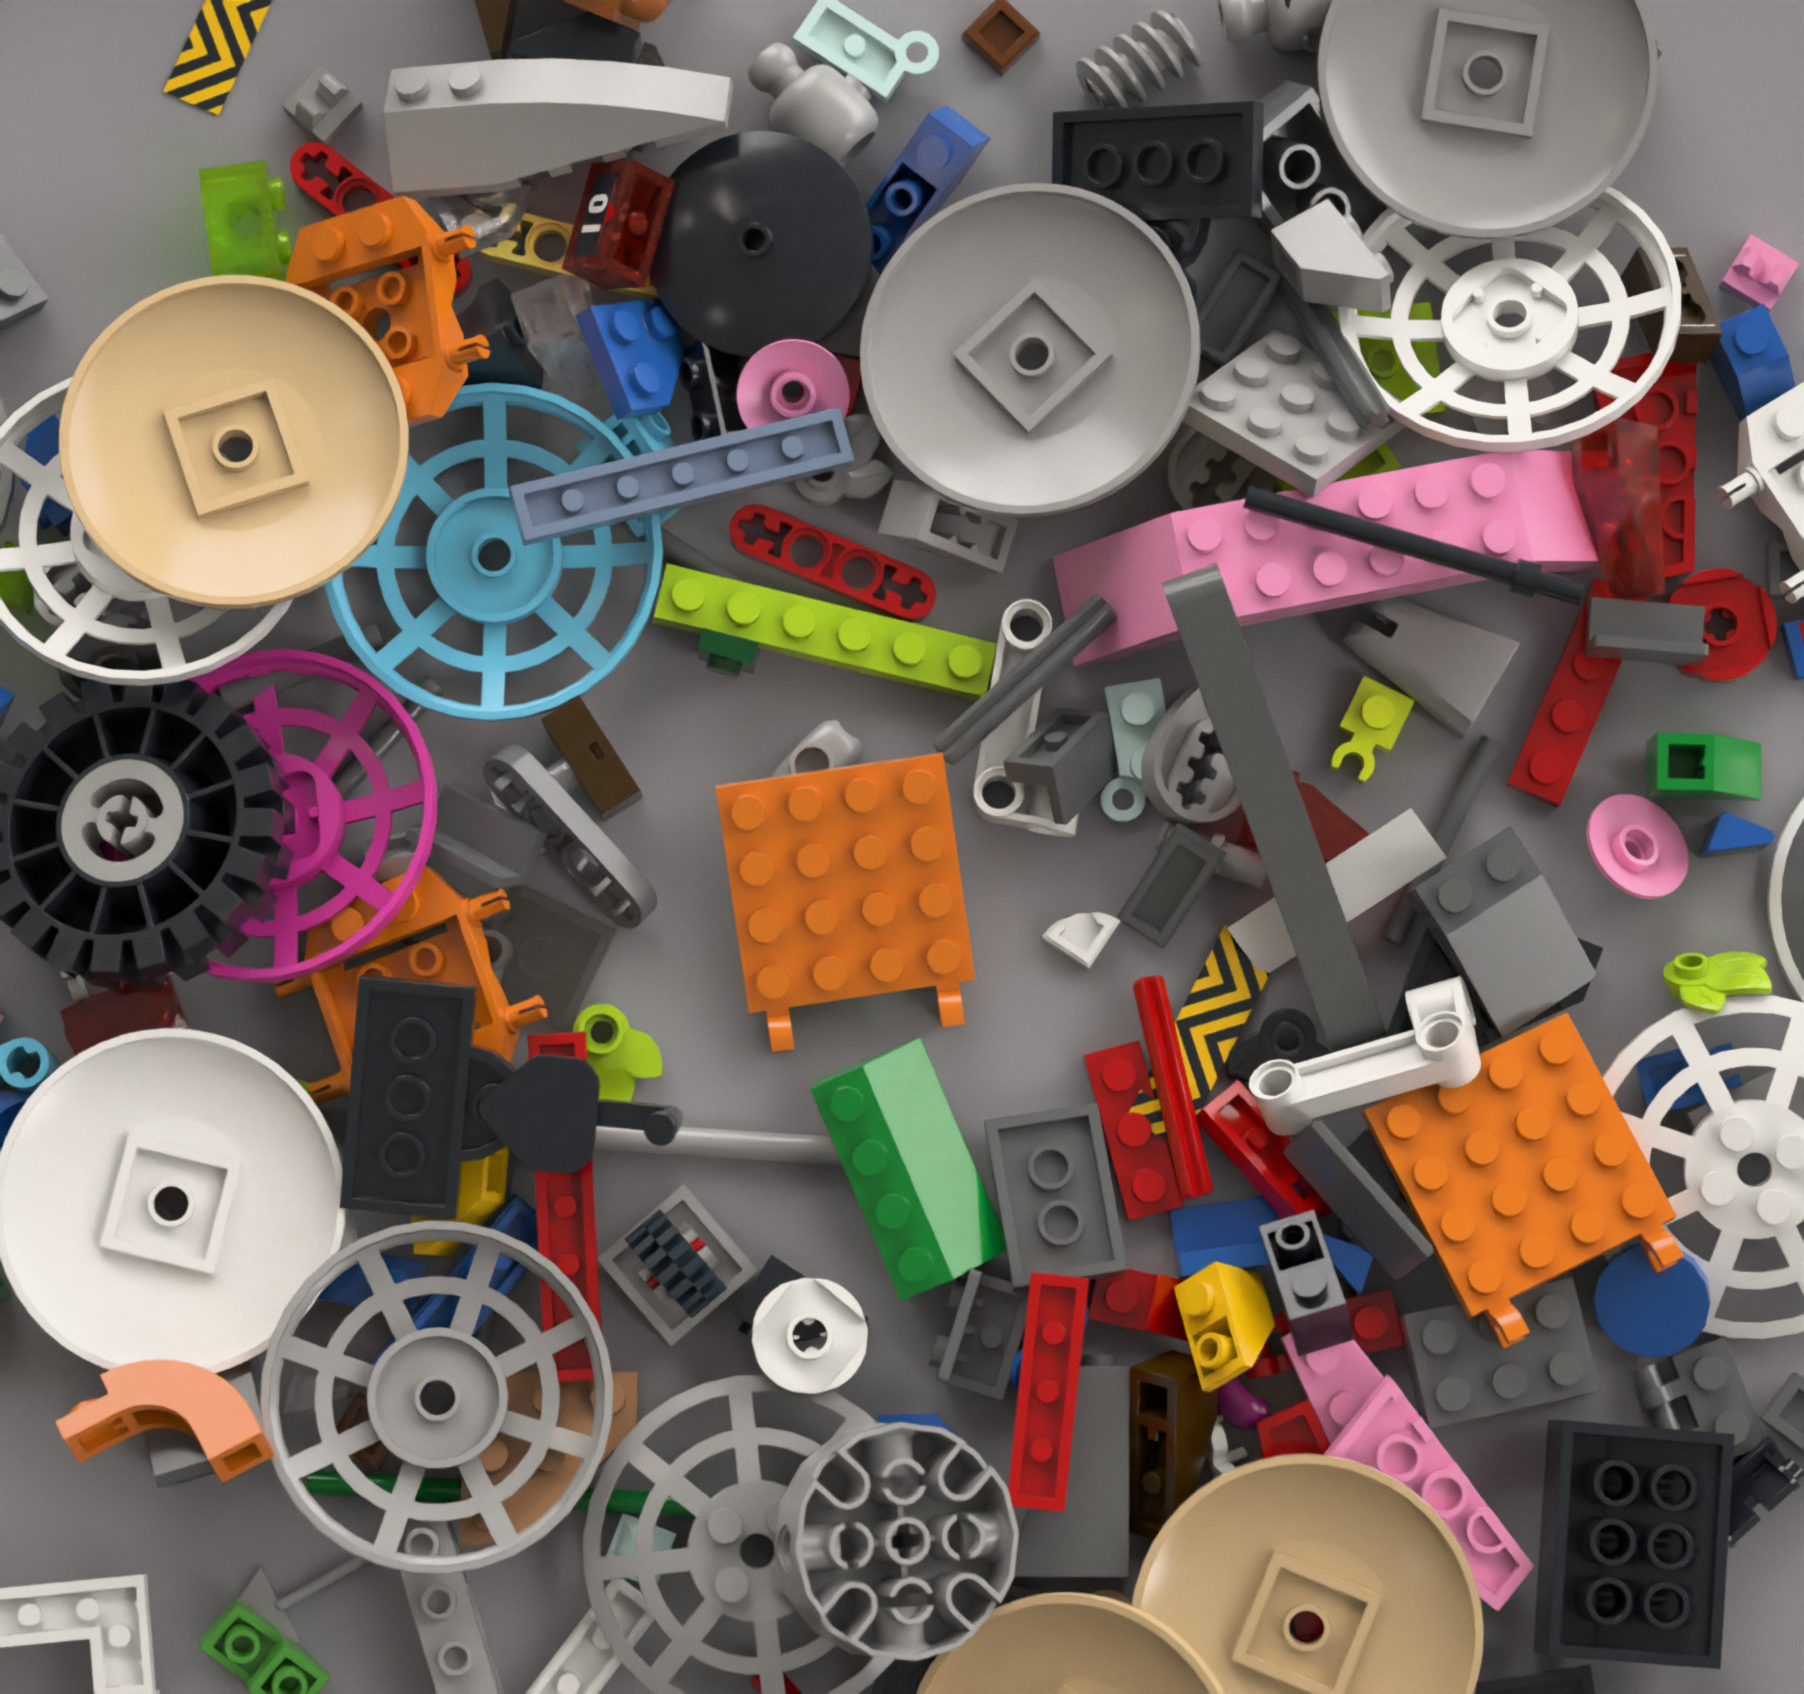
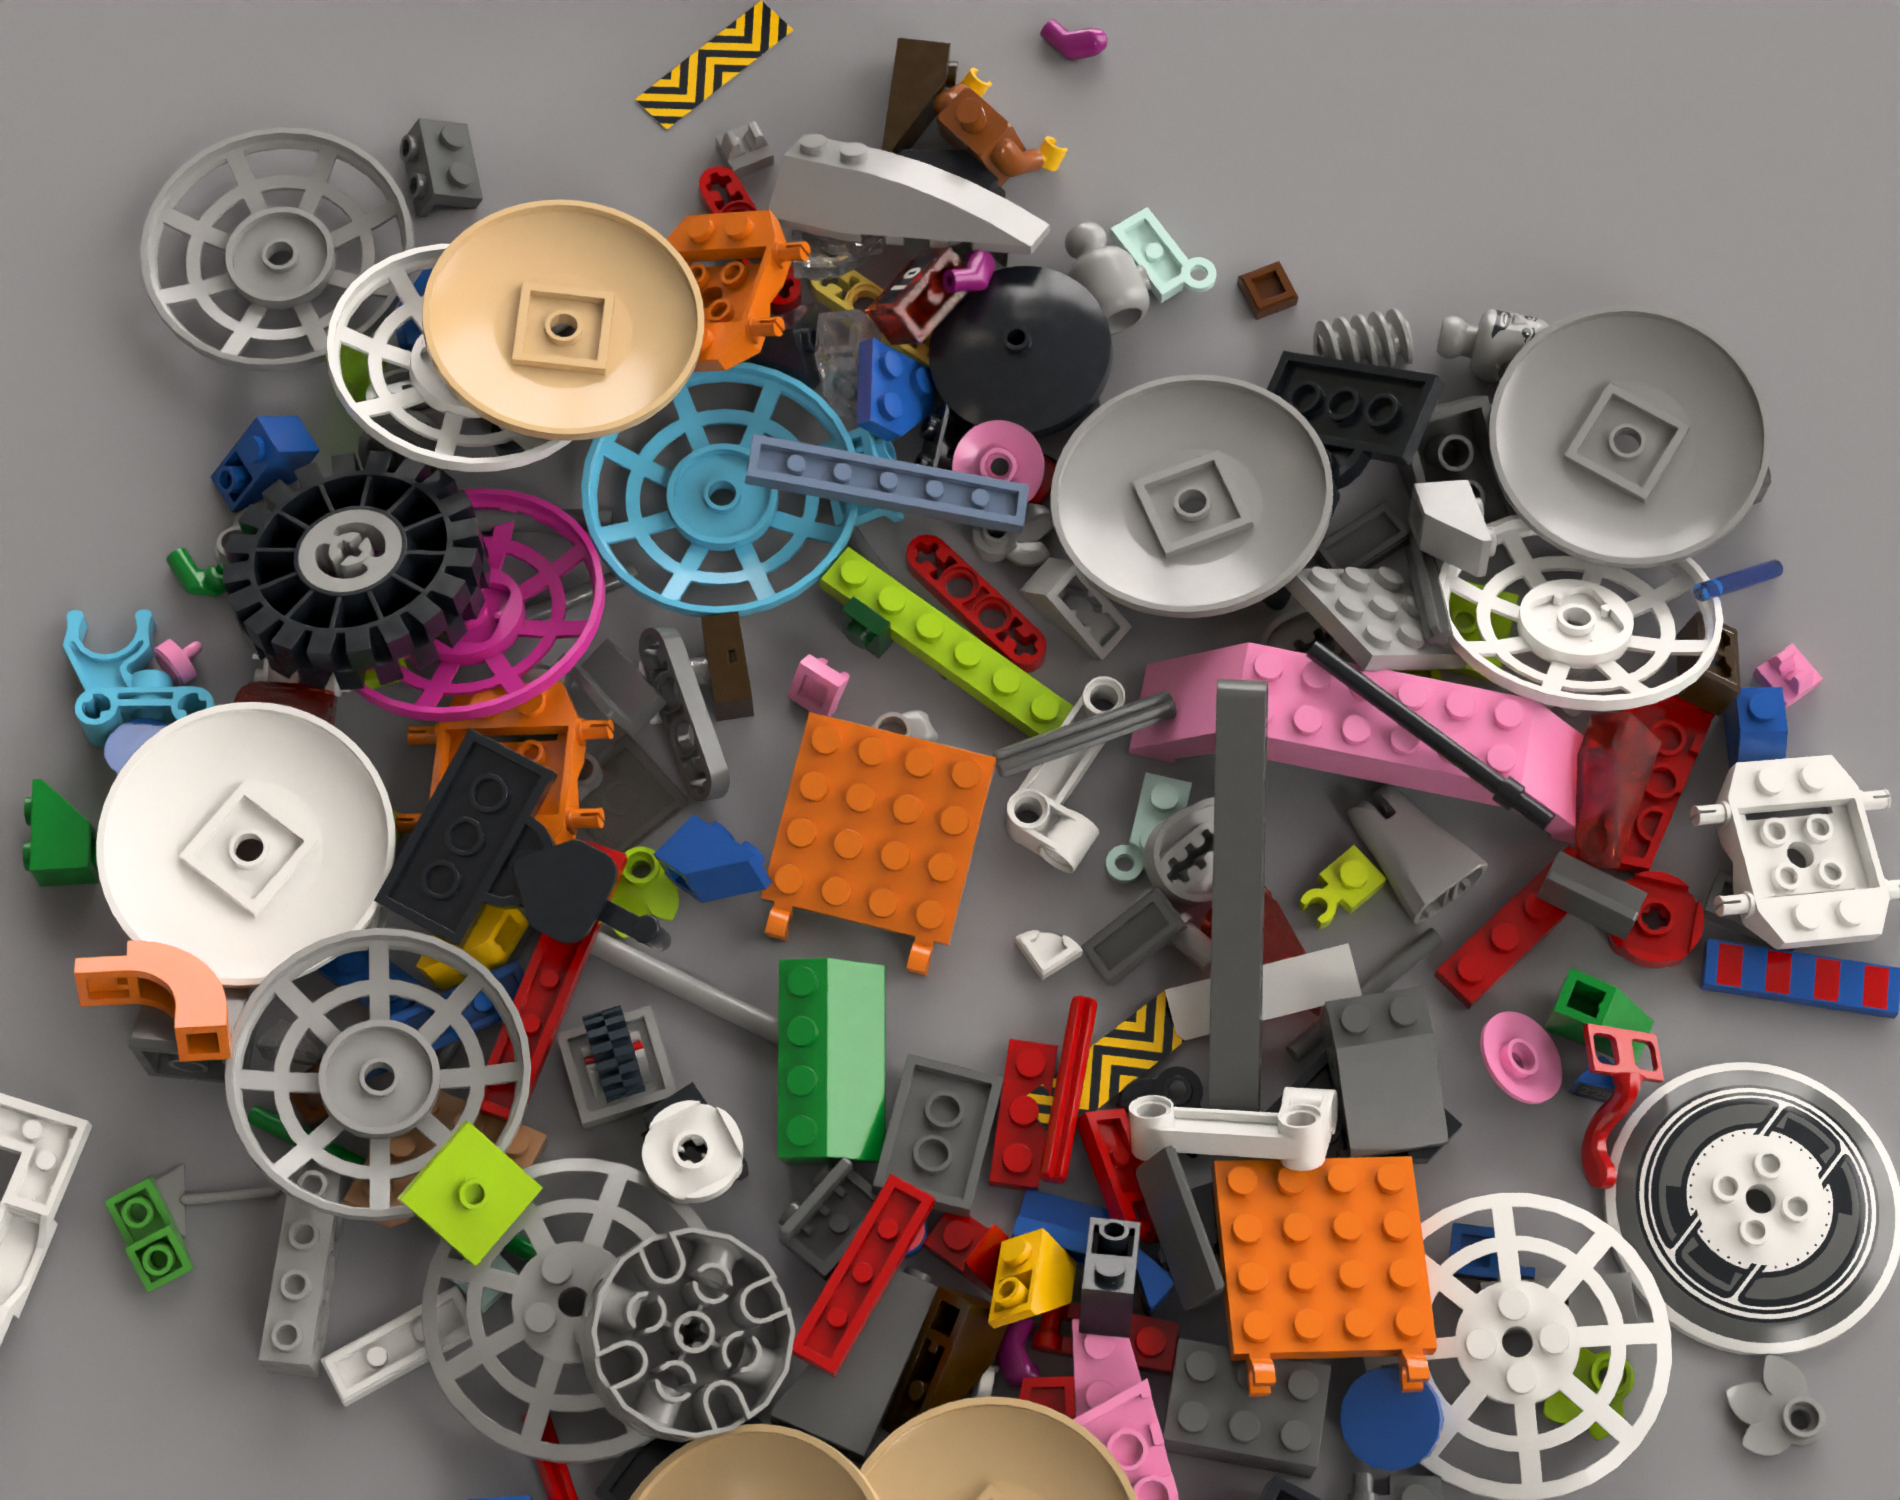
camera: 25 degrees right, 15 degrees down
(241, 191) = (653, 179): clear neon green brick -> none
(598, 1487) = (470, 1193): none -> lime plate
(673, 179) = (974, 277): none -> magenta arm
(678, 1001) = (710, 862): none -> blue slope
(703, 739) = (817, 686): none -> bright pink tile
(922, 179) = (1175, 348): blue slope -> none
(1068, 755) = (1096, 808): dark grey panel -> none
(1668, 191) = (1737, 580): none -> clear blue bar
(1707, 981) = (1534, 1184): lime plate -> none
(1763, 835) = (1627, 1080): none -> red piece

